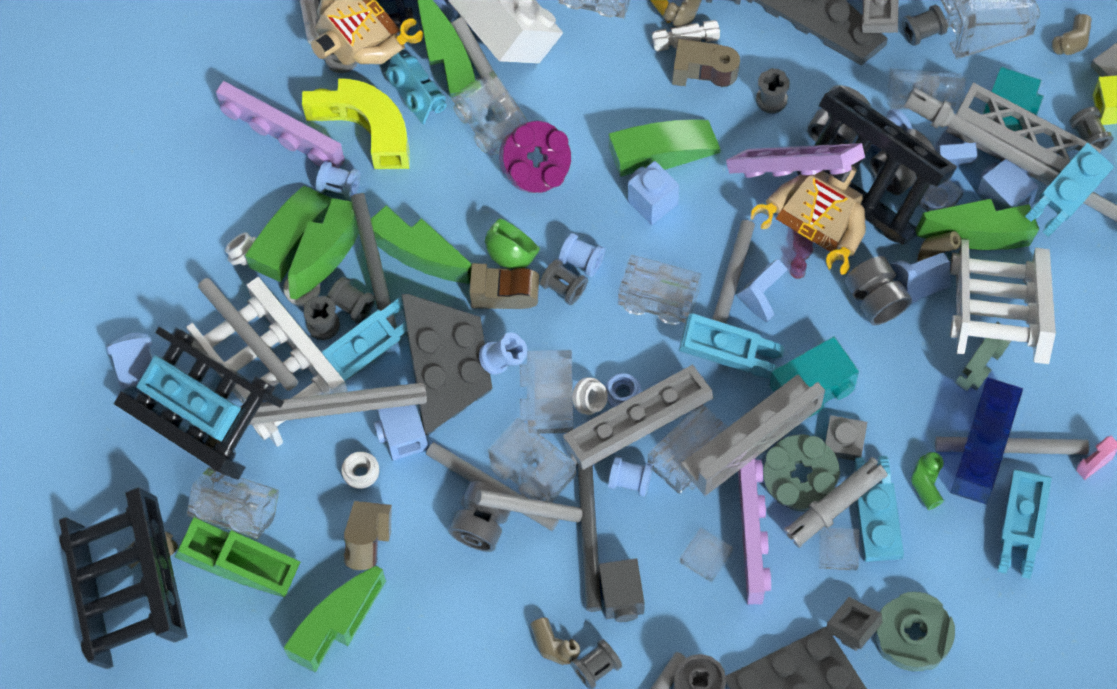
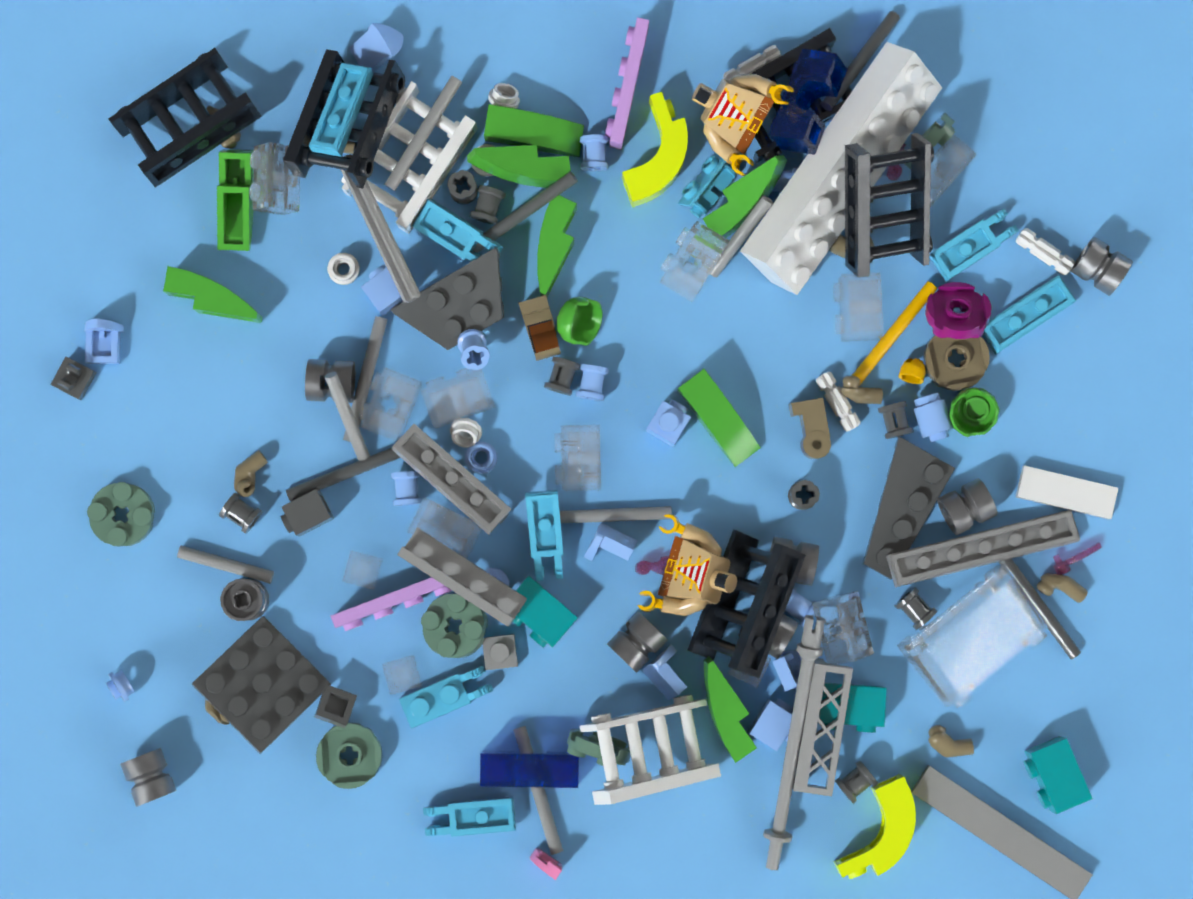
camera: 65 degrees right, 20 degrees up
(364, 528) = (282, 292): dark tan leg -> none
(520, 169) = (676, 298): magenta plate -> none
(805, 159) = (726, 537): lavender plate -> none
(823, 512) = (432, 661): light grey pin -> none
(924, 478) = (484, 726): bright green arm -> none
(939, 244) = (693, 678): dark tan arm -> none
(1071, 187) = (780, 779): medium azure hinge -> none

